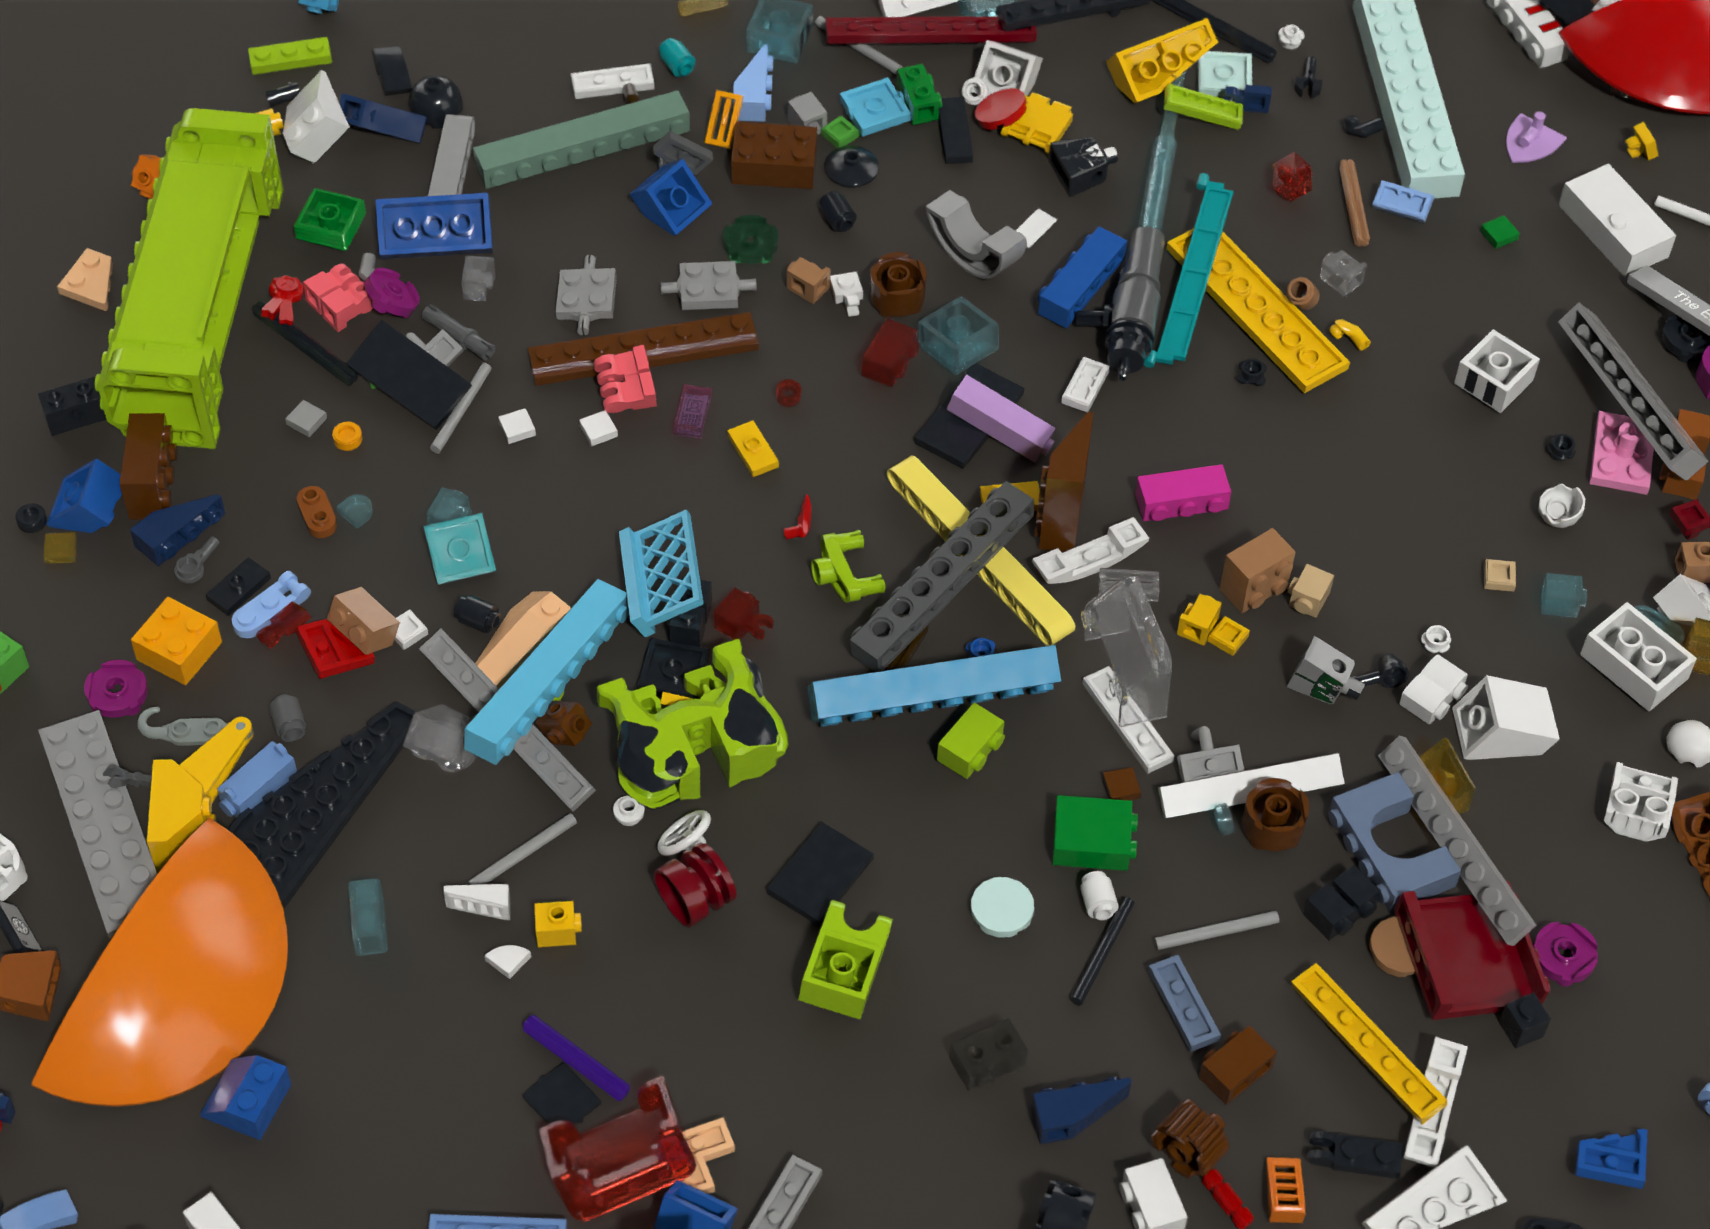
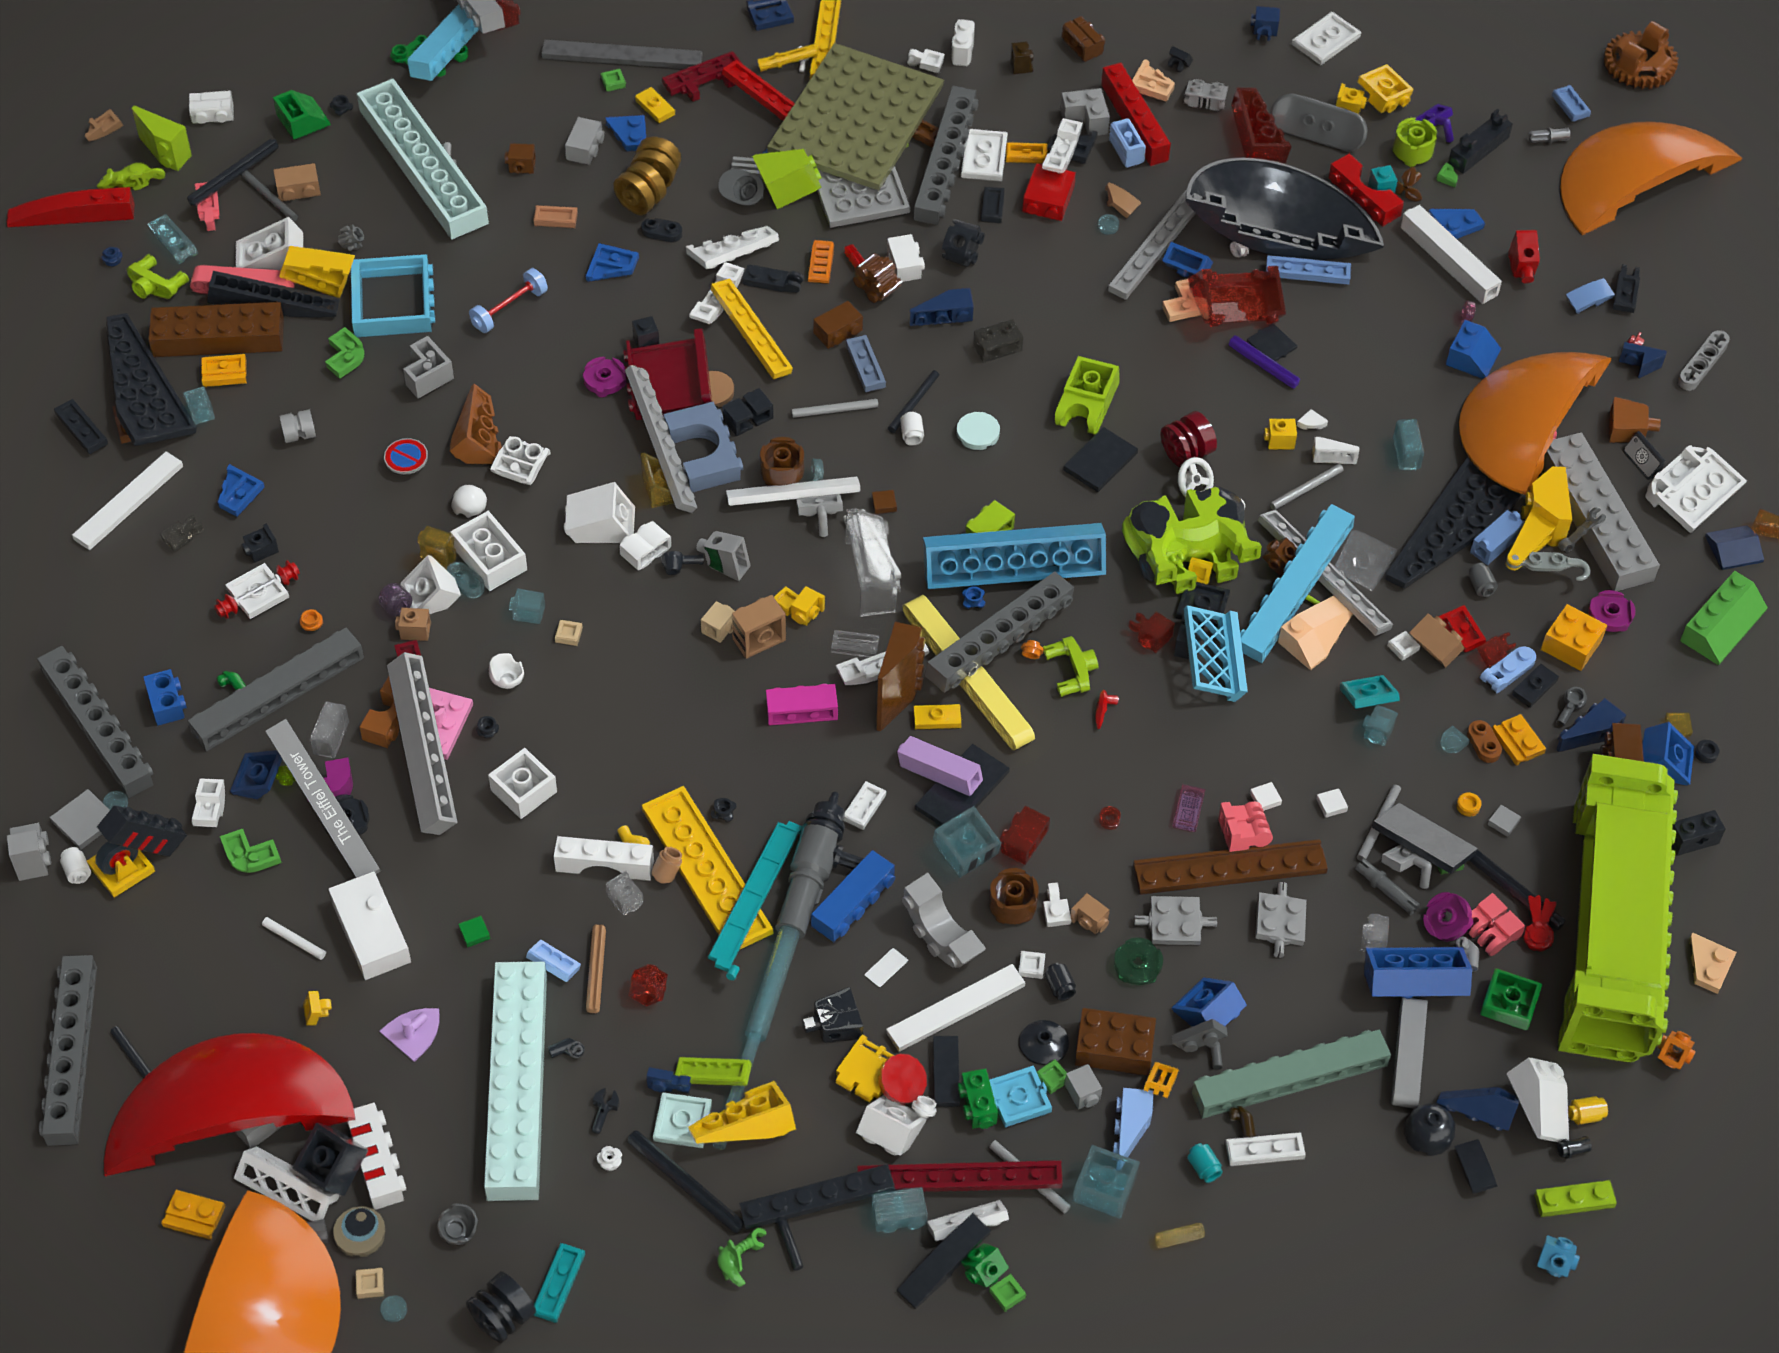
camera: 175 degrees left, 0 degrees up
(243, 1169) = (1468, 311): none -> clear pink tile
(272, 517) = (1518, 739): none -> light orange plate
(477, 613) = (1351, 646): black brick -> none
(753, 448) = (1140, 771): yellow plate -> none
(870, 235) = (1031, 964): none -> white tile
(896, 578) = (1032, 649): none -> orange plate
(962, 182) = (955, 1007): none -> white tile
(1094, 833) = (909, 465): green brick -> none
(1347, 298) = (576, 854): none -> white arch
(1439, 634) = (632, 579): white plate -> none

